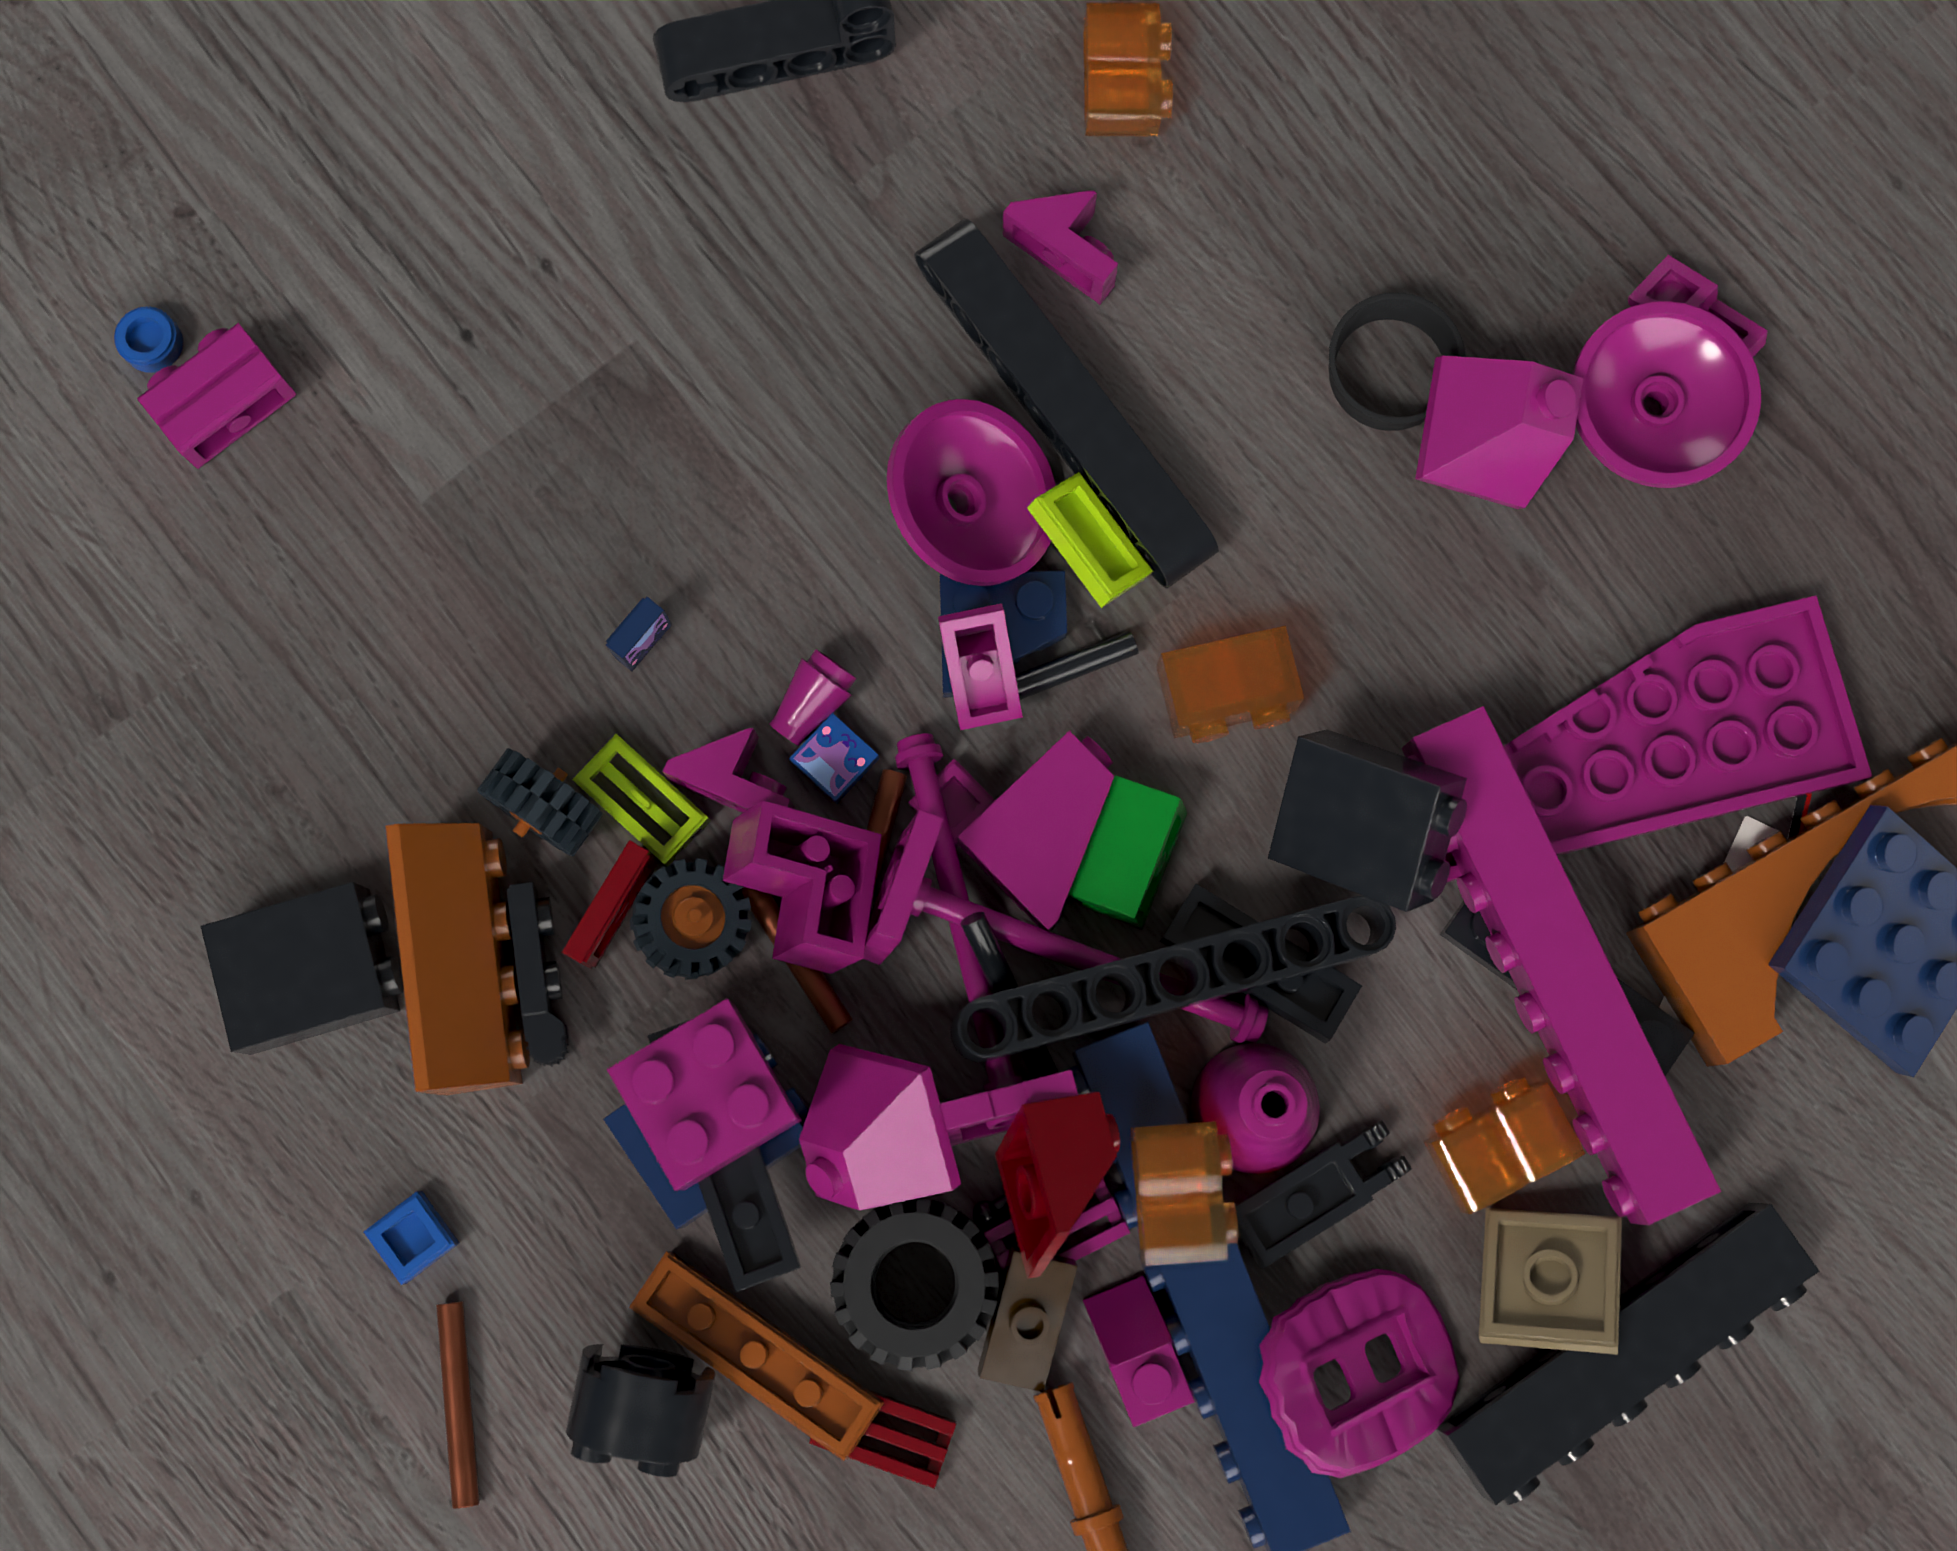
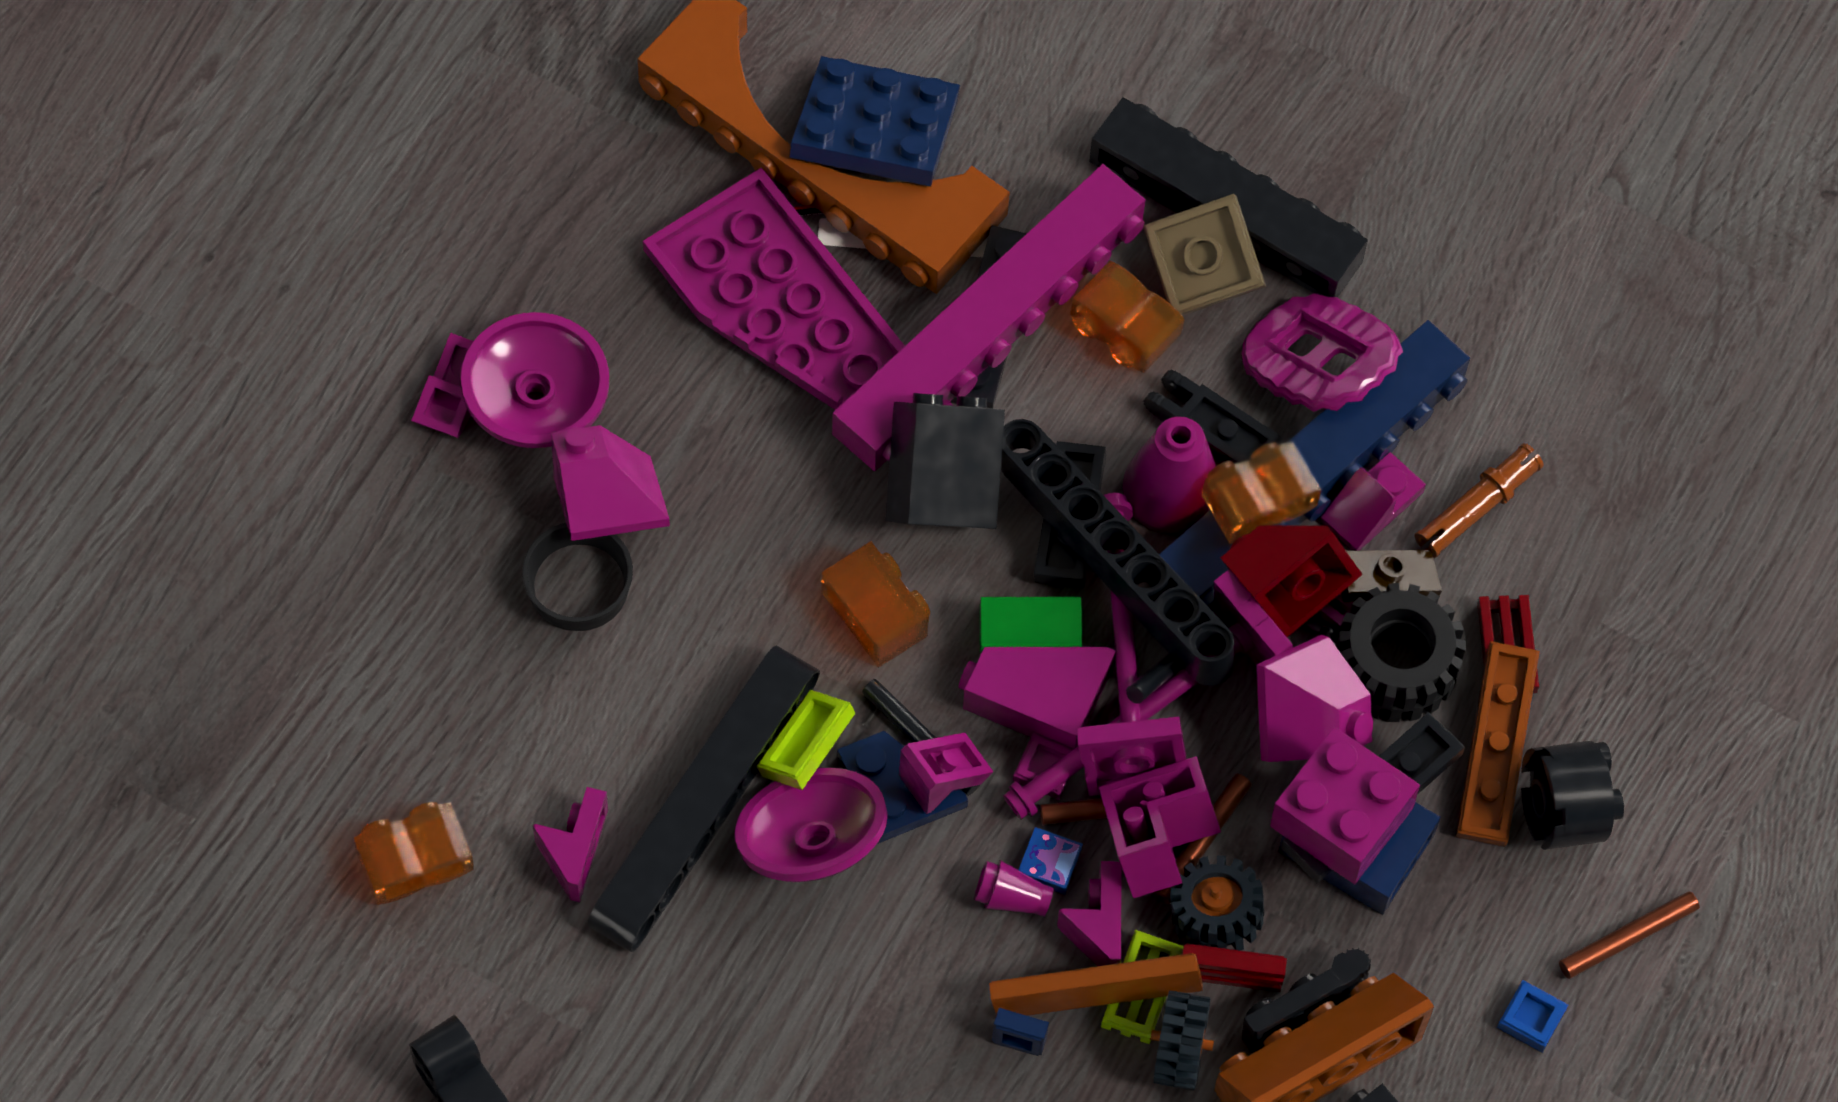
camera: 115 degrees left, 15 degrees down
(645, 734) = (1097, 985): none -> dark orange tile

